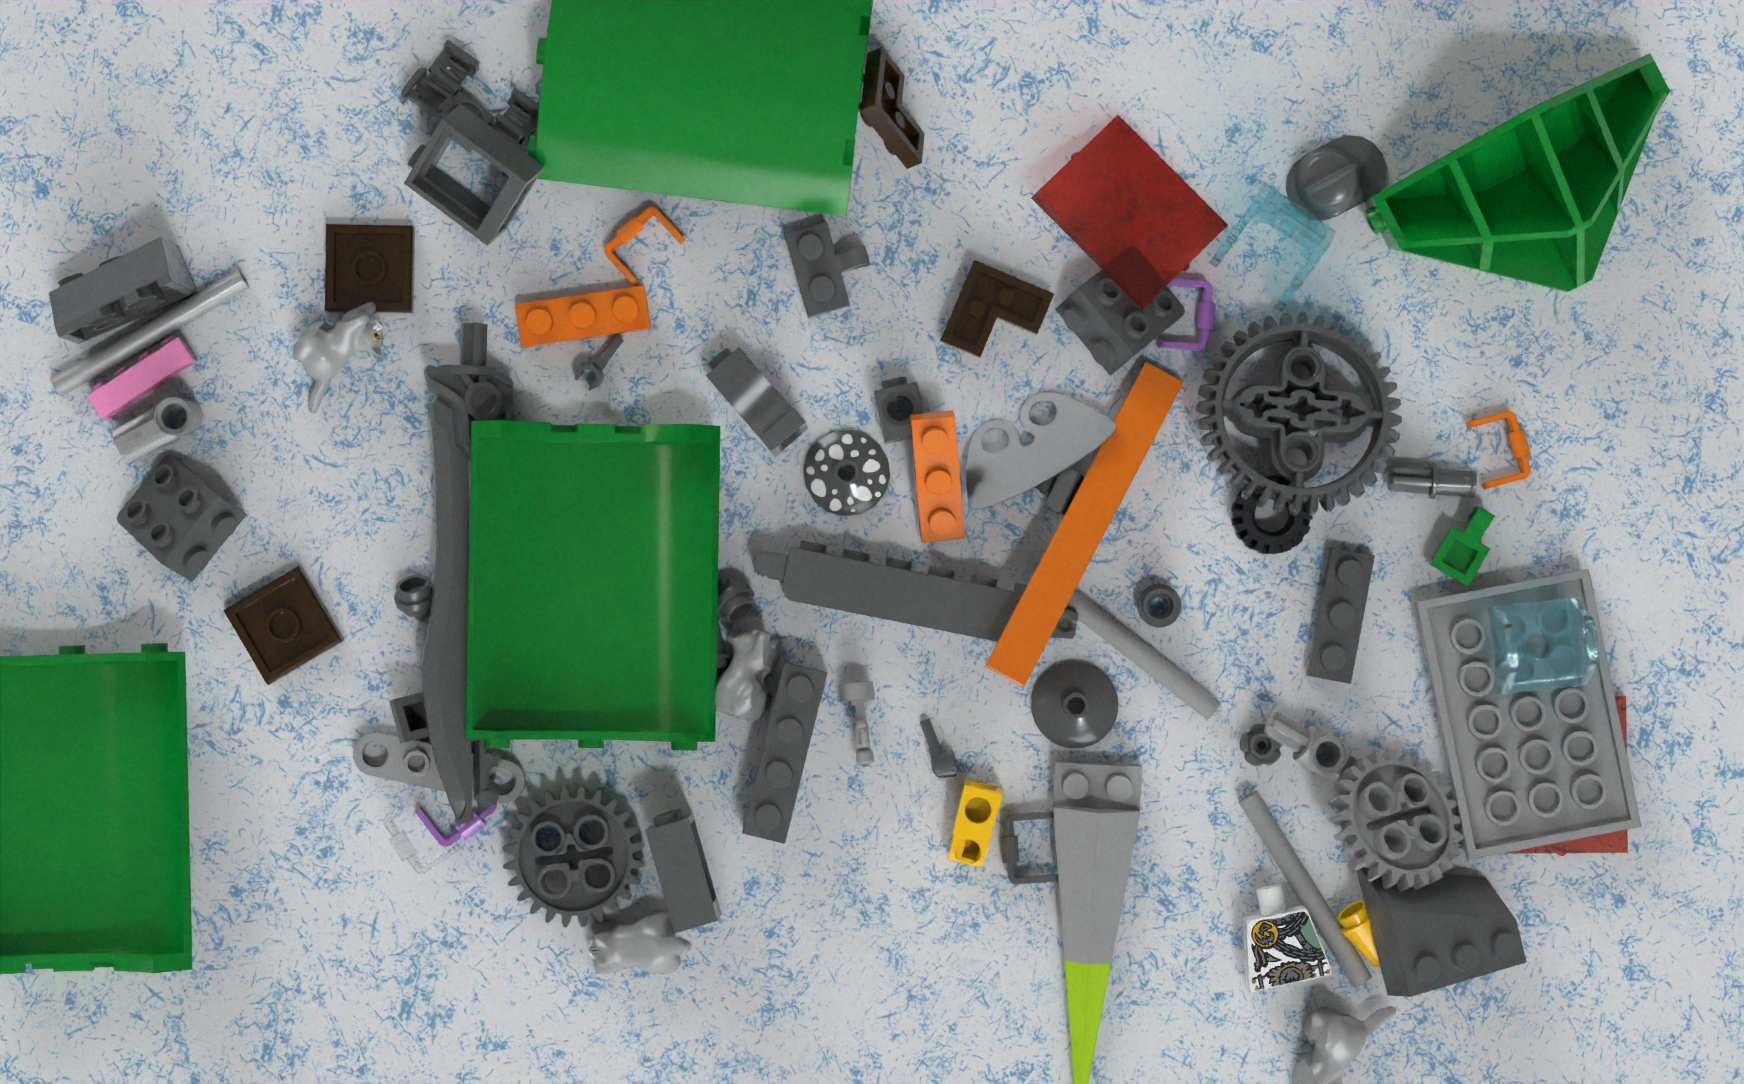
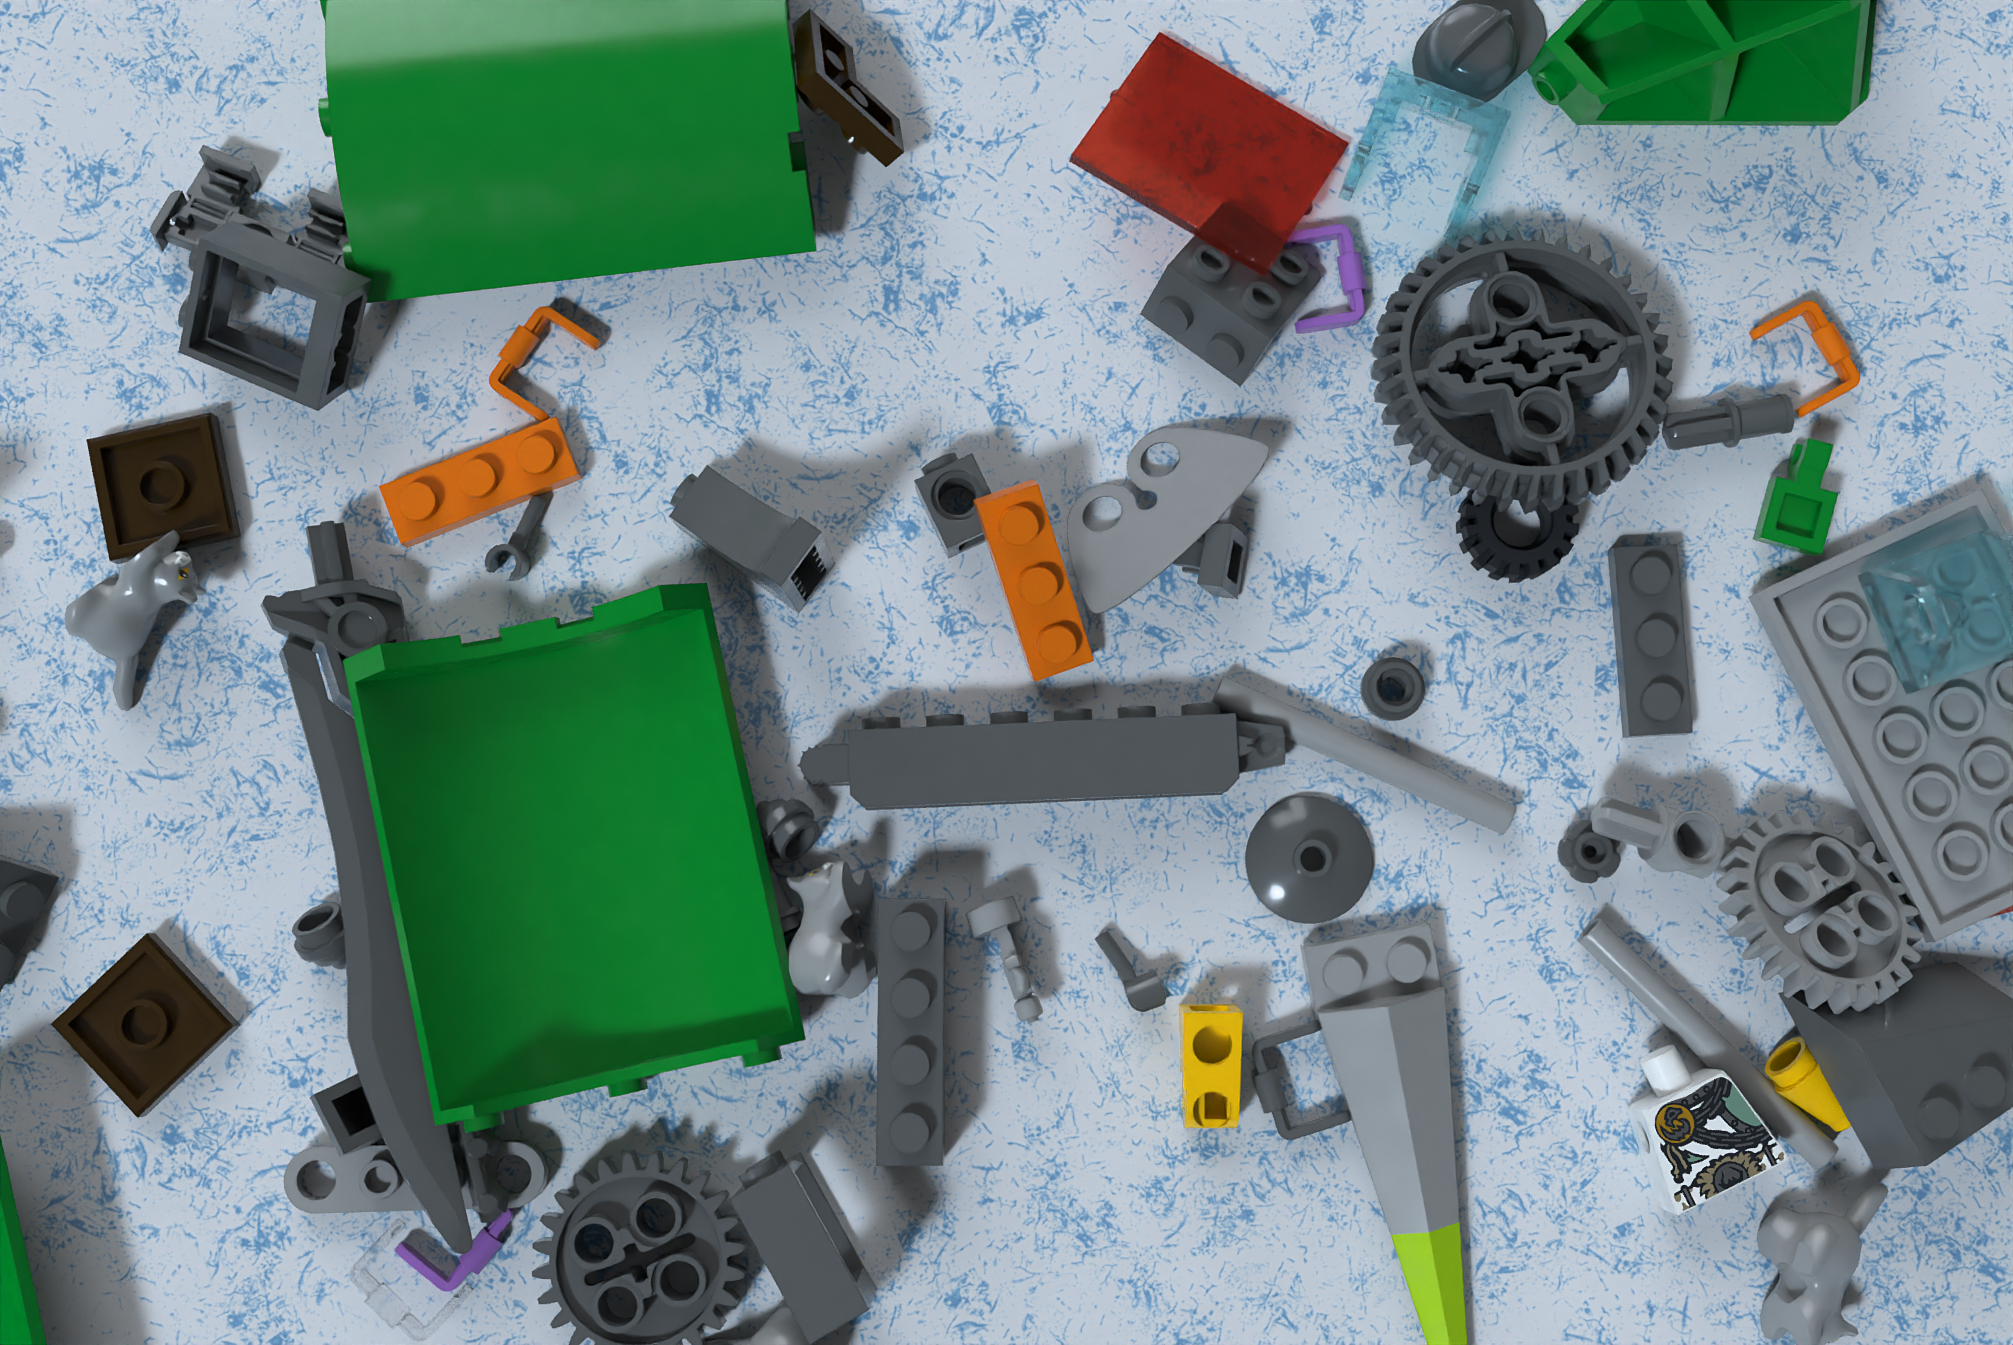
camera: 20 degrees left, 5 degrees down
(820, 268) = (801, 336): dark grey plate -> none
(844, 496) = (912, 642): dark grey dish -> none
(993, 296) = (1049, 314): dark brown plate -> none
(1083, 525) = (1258, 604): orange tile -> none

